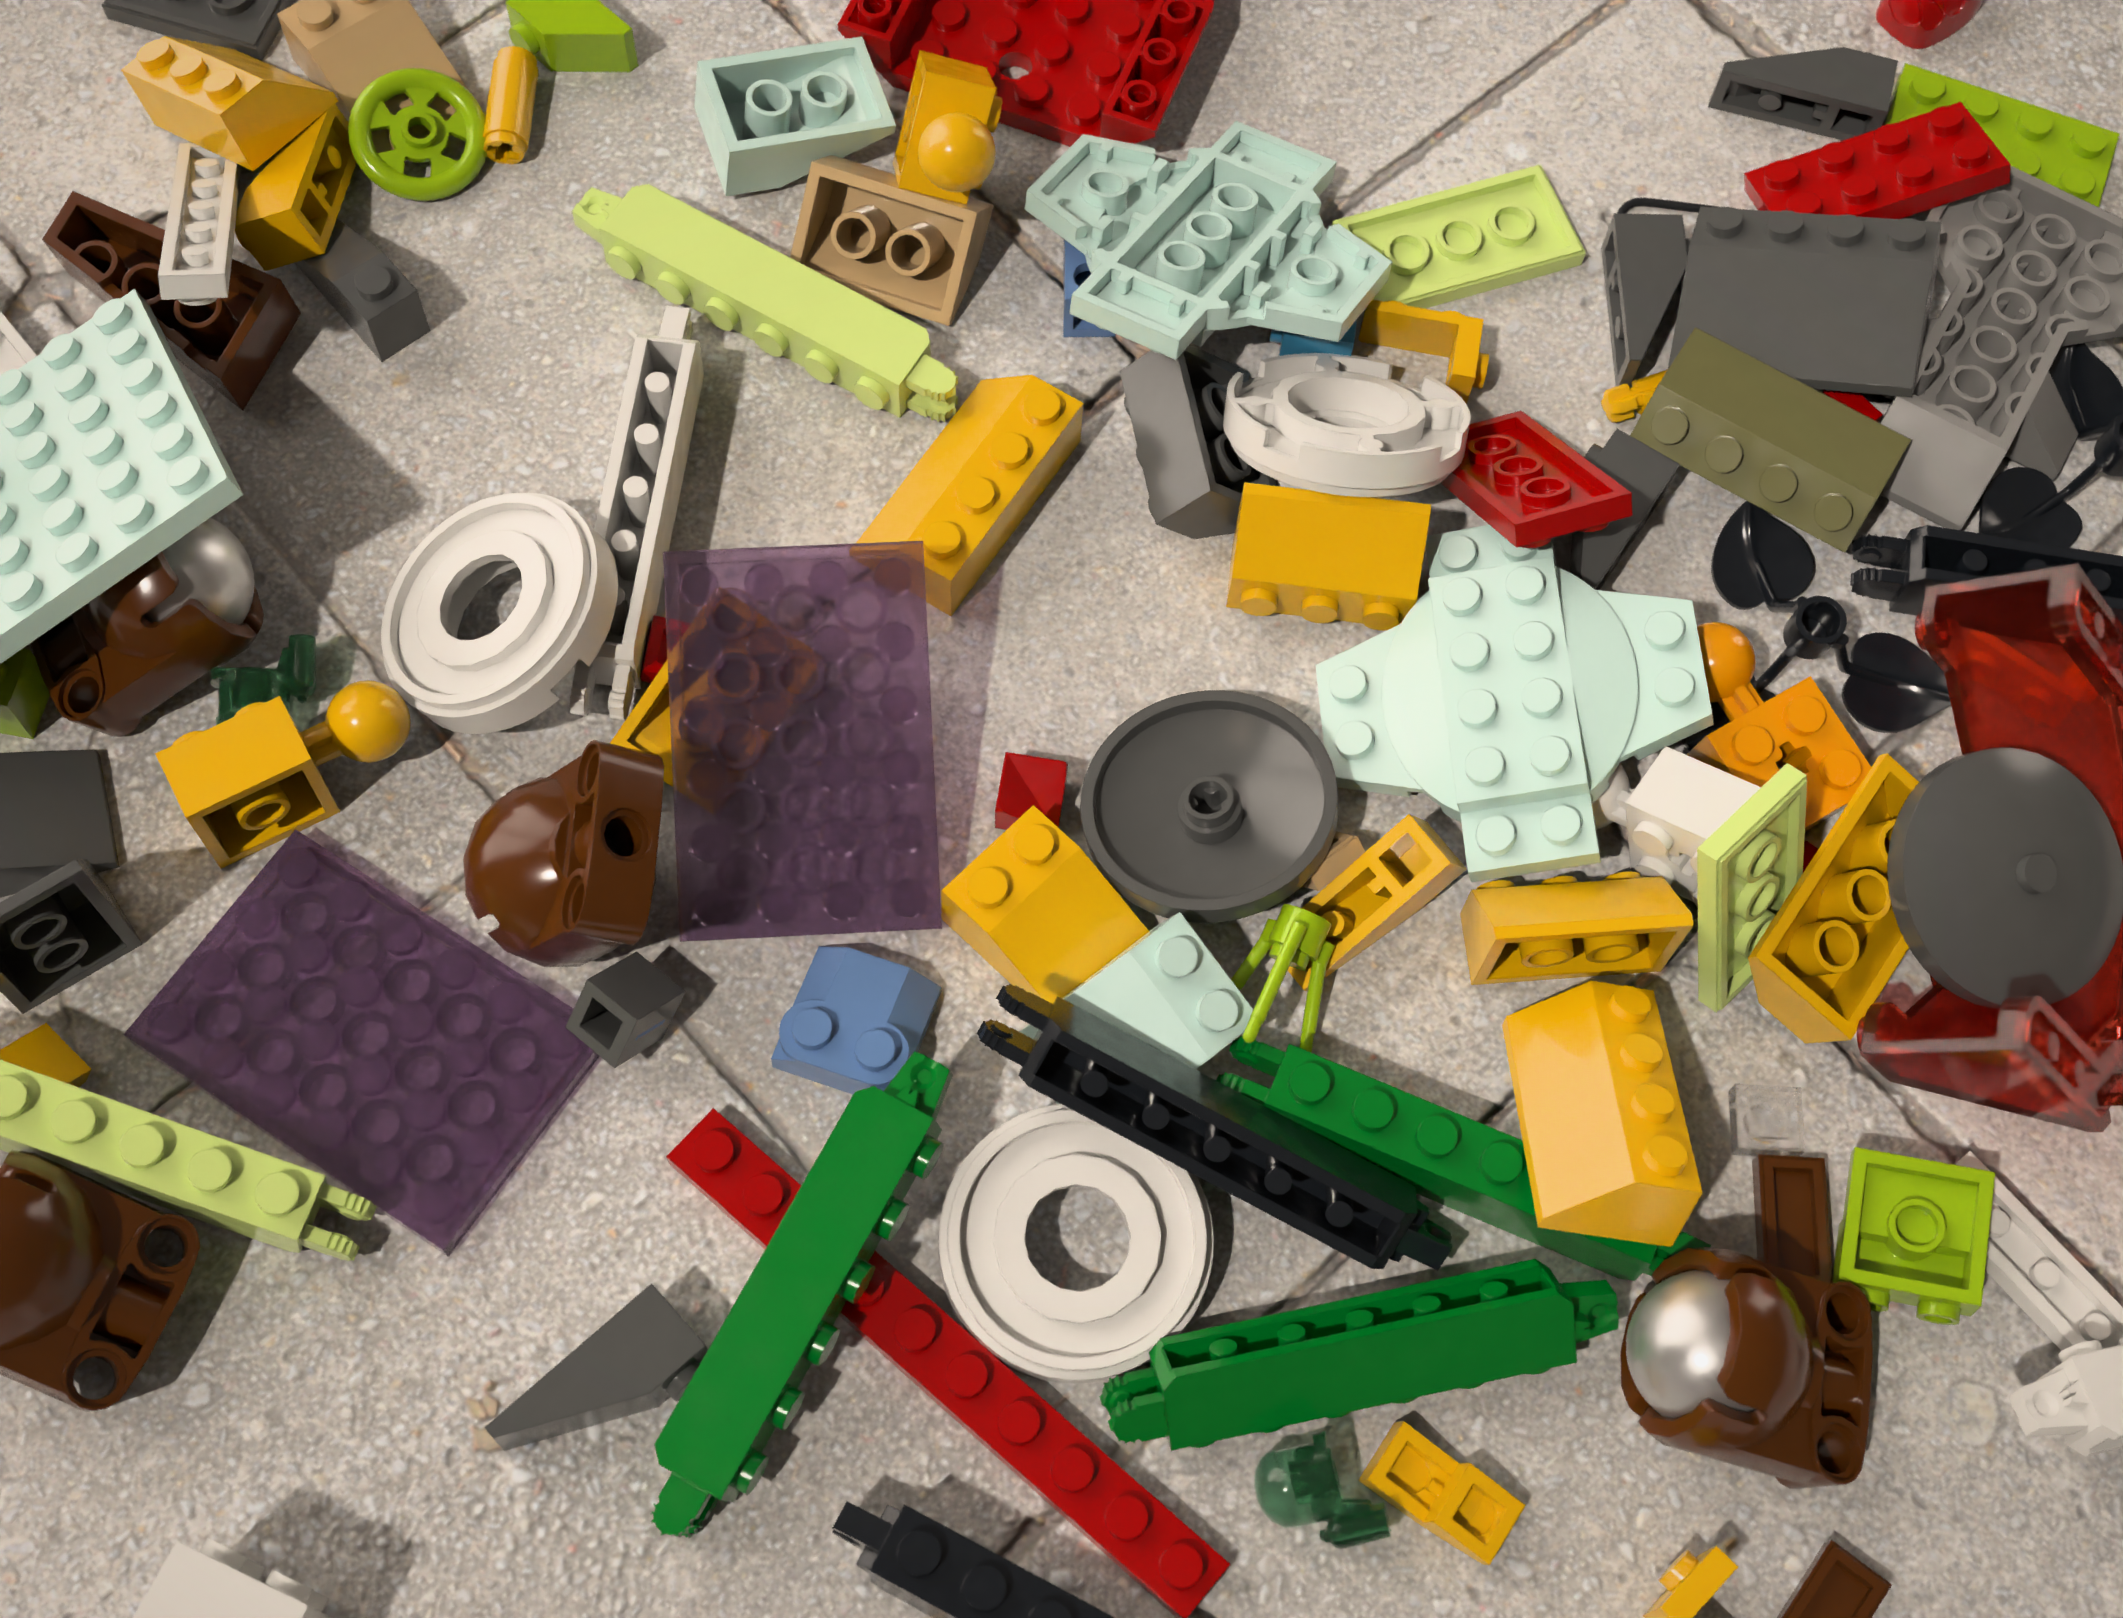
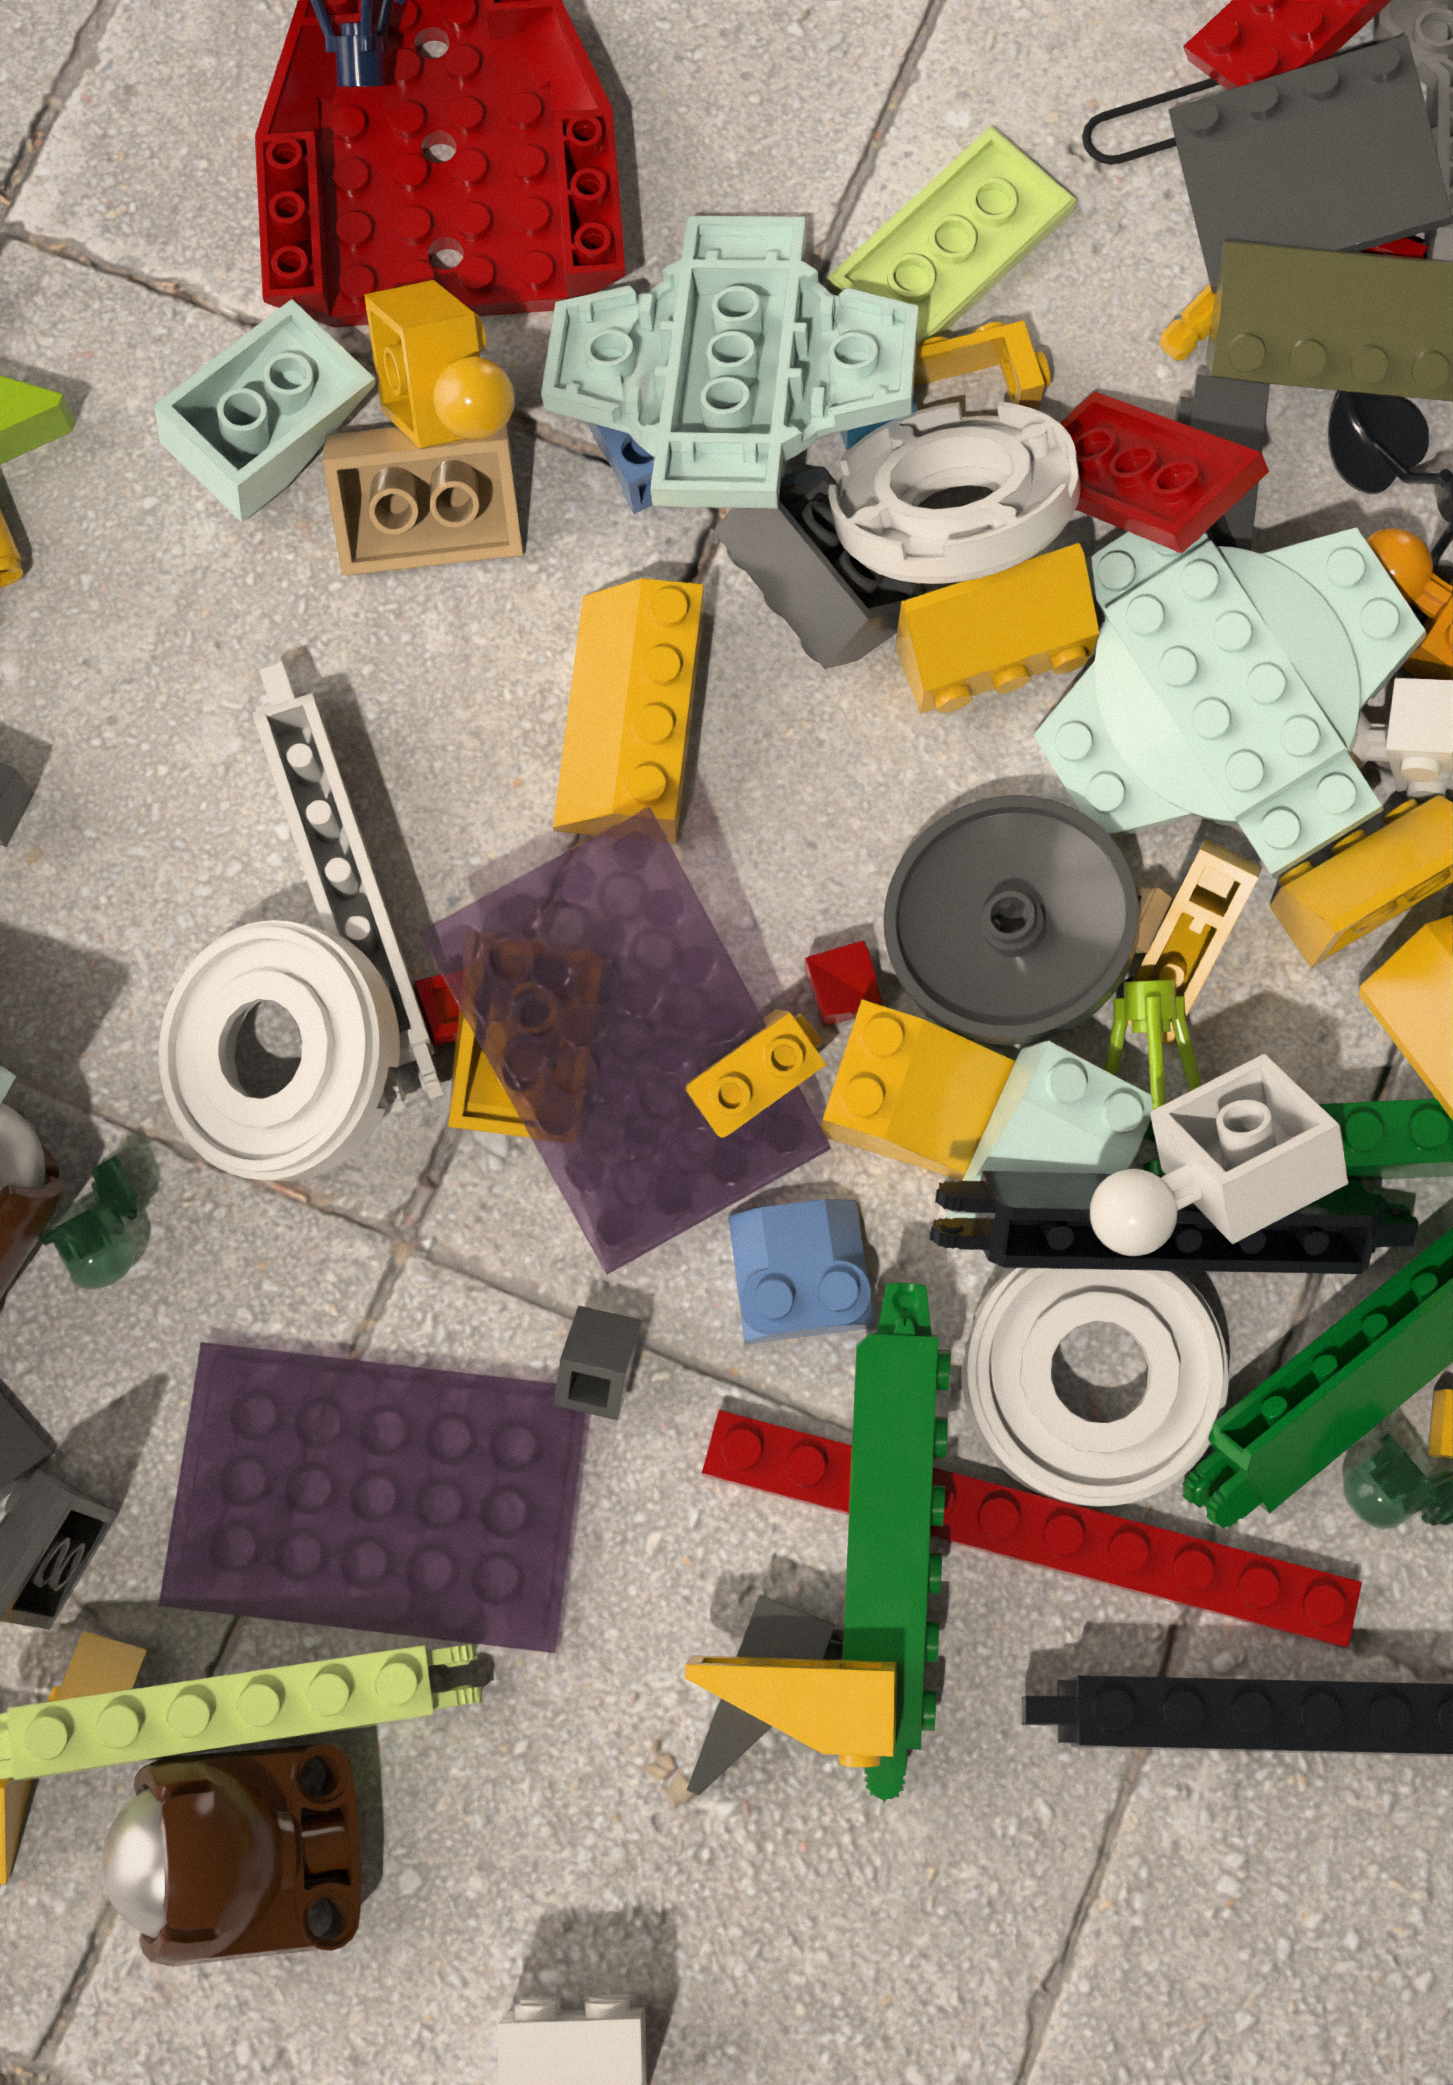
camera: 20 degrees left, 10 degrees up
(261, 776) = (151, 1301): yellow brick -> none
(570, 858) = (490, 1257): reddish brown piece -> none
(641, 1400) = (823, 1703): none -> yellow slope
(770, 300) = (342, 612): yellowish green hinge -> none
(905, 824) = (757, 1072): none -> yellow bracket
(1294, 1075) = (1235, 1148): none -> white brick
(1642, 271) = (1142, 201): dark grey slope -> none

